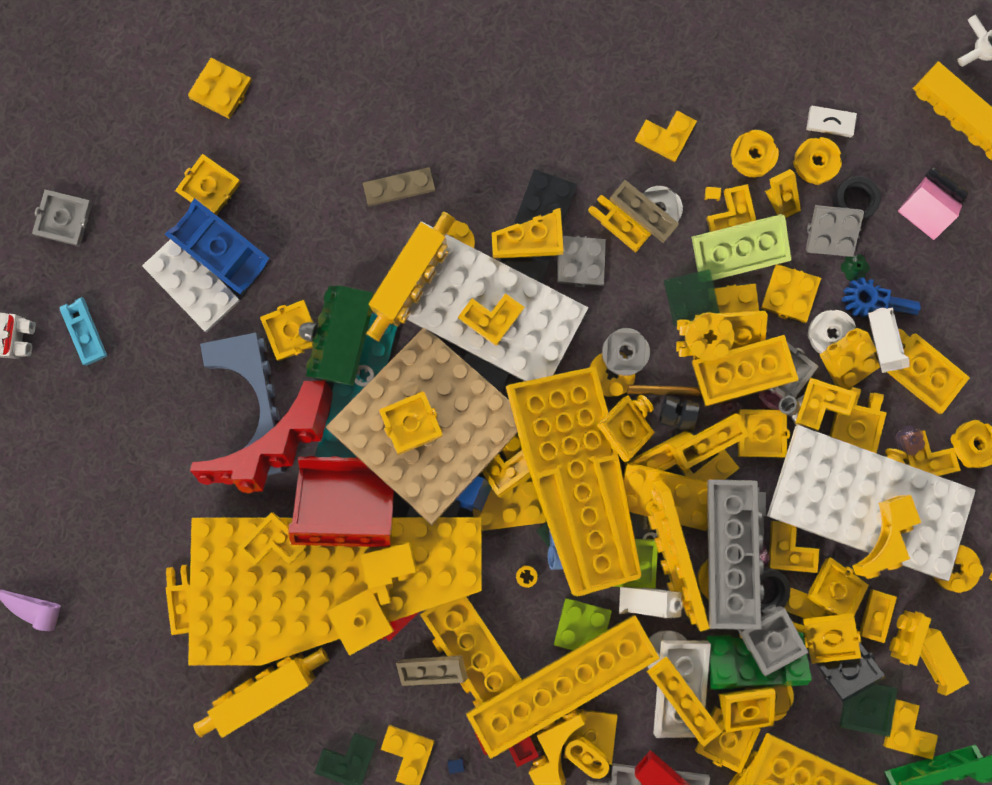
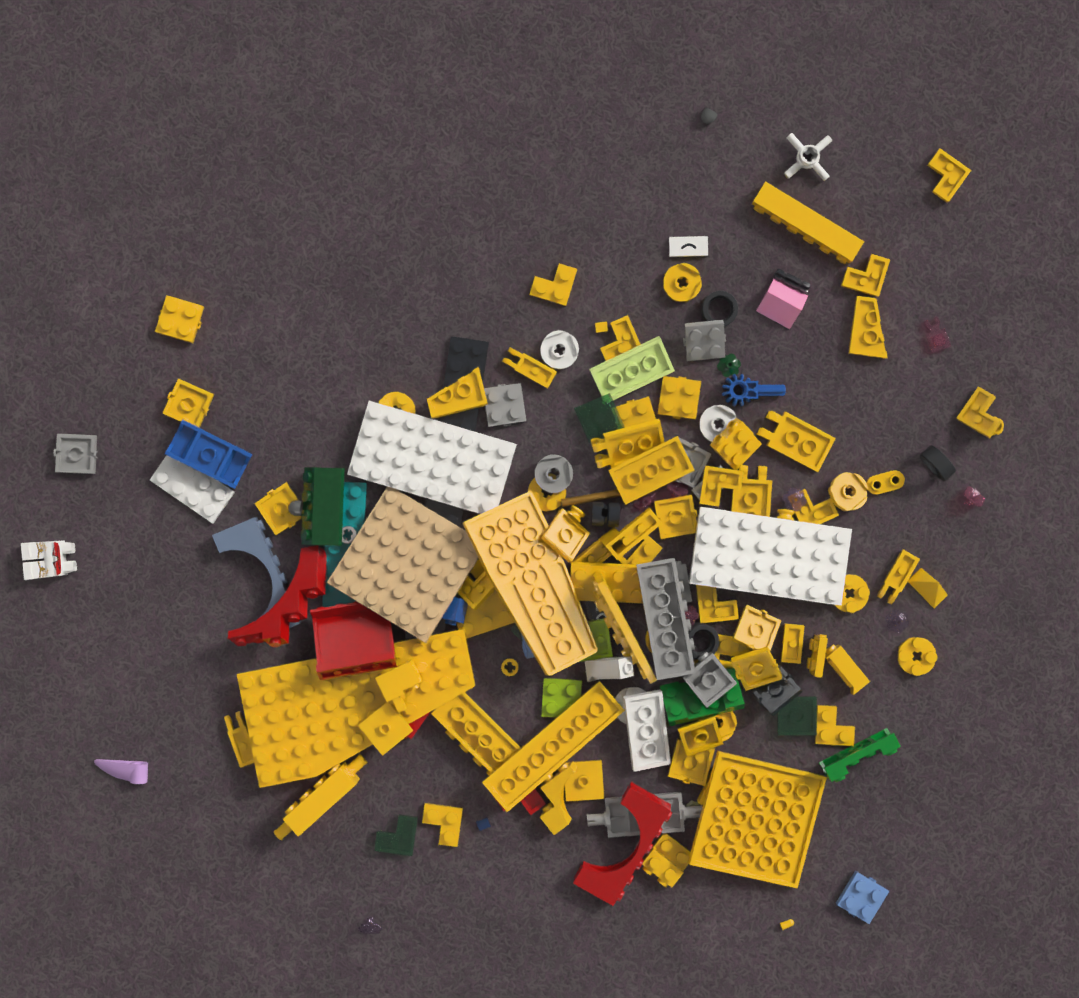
camera: 15 degrees left, 5 degrees up
(83, 332) = (114, 543): medium azure plate -> none
(269, 535) = (303, 675): yellow plate -> none
(398, 186) = (343, 372): dark tan plate -> none
(409, 274) = (367, 450): yellow brick -> none
(410, 423) = (393, 567): yellow plate -> none
(432, 670) = (449, 754): dark tan plate -> none
(491, 324) = (442, 474): yellow plate -> none
(585, 756) = (582, 797): yellow plate -> none
(644, 211) = (546, 356): dark tan plate -> none
(684, 701) = (649, 739): yellow plate -> none
(721, 329) = (625, 457): yellow plate -> none
(766, 149) = (638, 281): yellow plate -> none
(784, 194) = (659, 318): yellow slope -> none
(788, 402) = (690, 489): dark grey hinge -> none
(887, 340) = (760, 423): white window -> none
(897, 517) = (787, 594): yellow arch -> none

